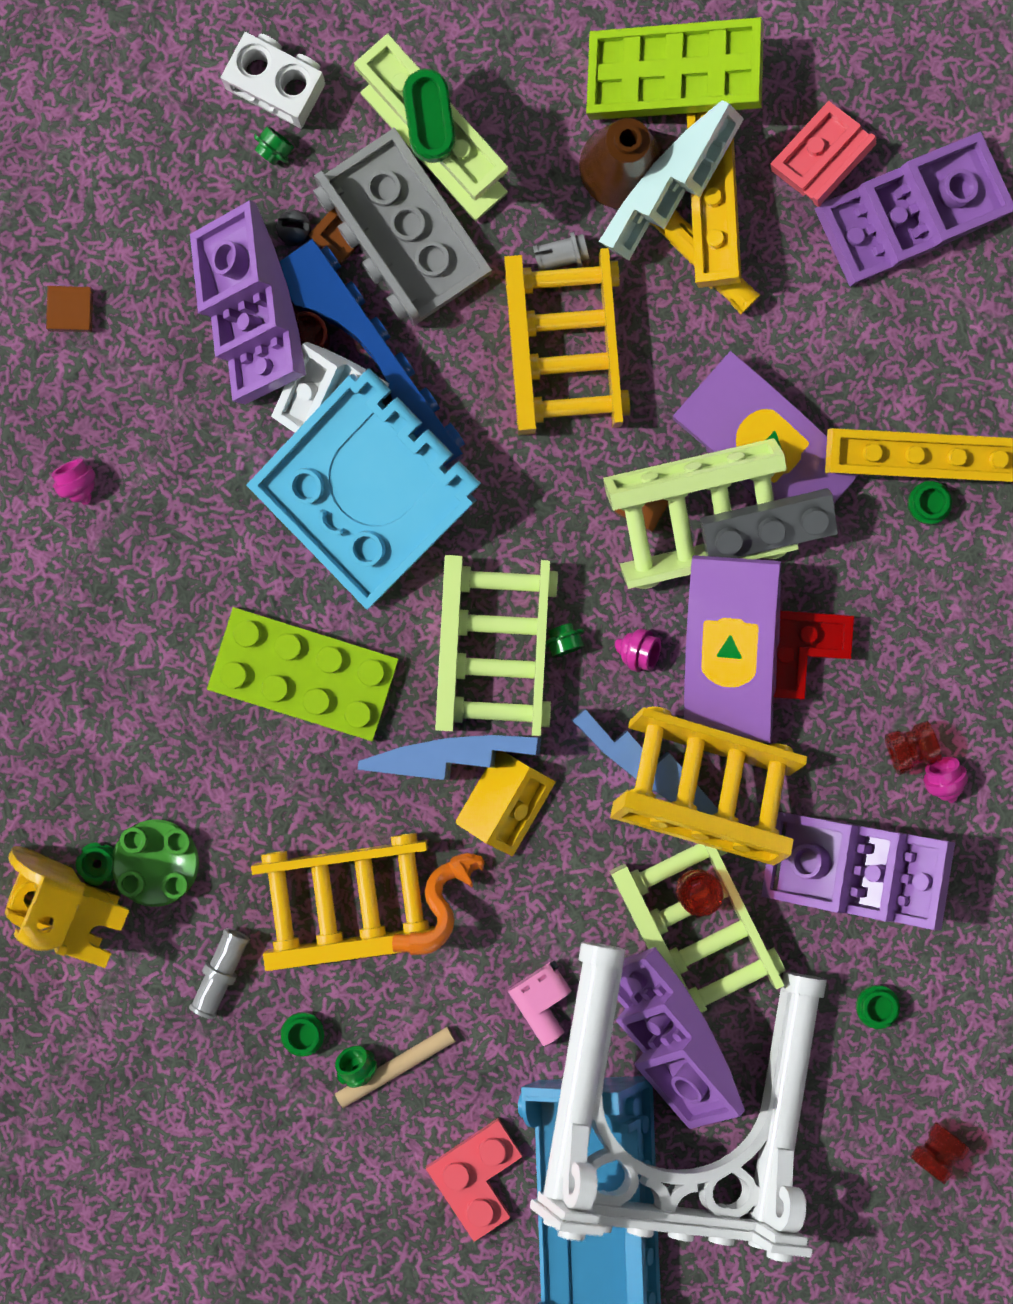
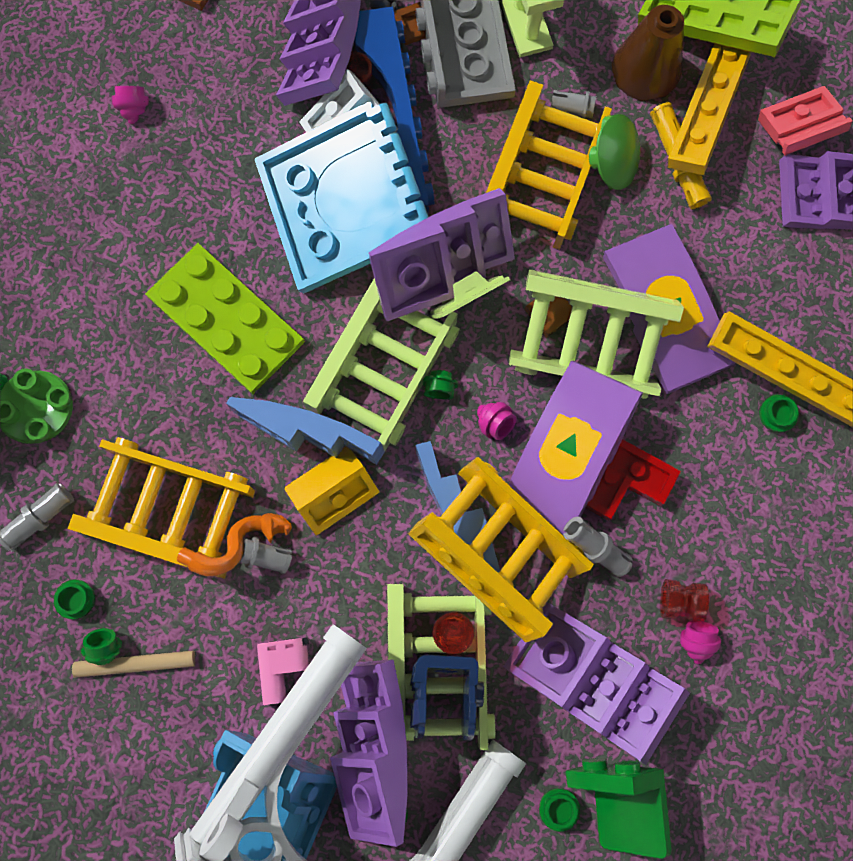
camera: 30 degrees right, 10 degrees down
(464, 1177) = (142, 785): coral plate -> none
(474, 901) = (265, 556): none -> light grey pin
(505, 505) = (429, 257): none -> medium lavender slope
(547, 535) = (467, 291): none -> yellowish green piece
(635, 293) = (616, 151): none -> bright green dish
(681, 168) = (691, 73): light aqua slope -> none
(745, 941) = (472, 690): none -> dark blue piece
(770, 525) = (646, 365): dark grey plate -> none
(803, 736) = (597, 546): none -> light grey pin
(941, 973) = (628, 805): none -> green bracket

